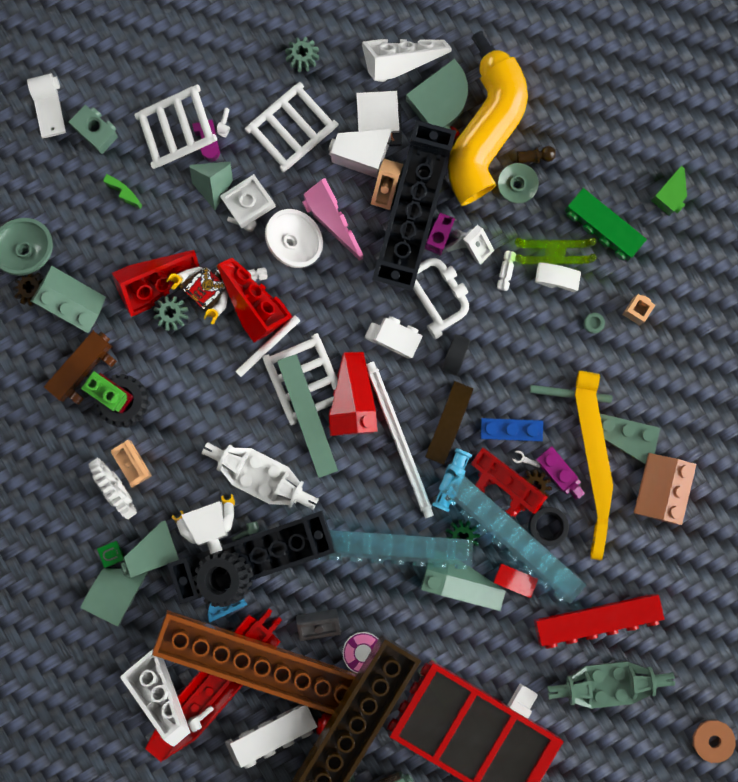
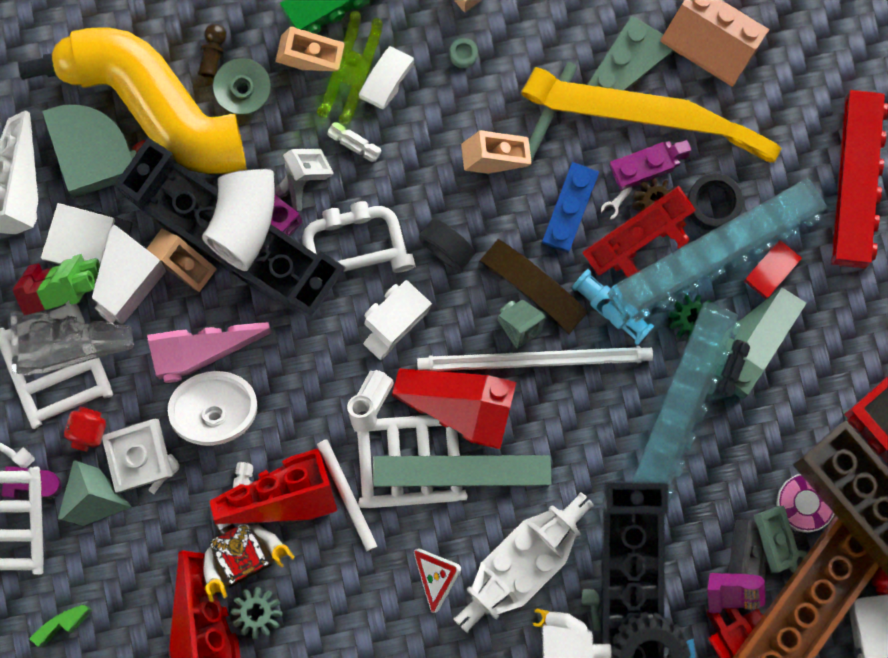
camera: 65 degrees left, 5 degrees down
(233, 422) = (437, 577): none -> piece
(254, 161) = (85, 428): none -> red head
(286, 622) = (735, 591): none -> magenta leg
(302, 120) = (51, 343): none -> clear wedge
(331, 641) = (778, 539): none -> sand green hinge
(335, 339) = (369, 399): none -> white piece
(339, 107) = (54, 286): none -> bright green hips
(419, 420) = (521, 322): none -> sand green slope
(425, 211) = (241, 216): none -> white brick
(434, 573) = (733, 368): none -> black axle
(531, 366) = (495, 152): none -> light nougat slope
(557, 219) = (309, 51): none -> light nougat slope

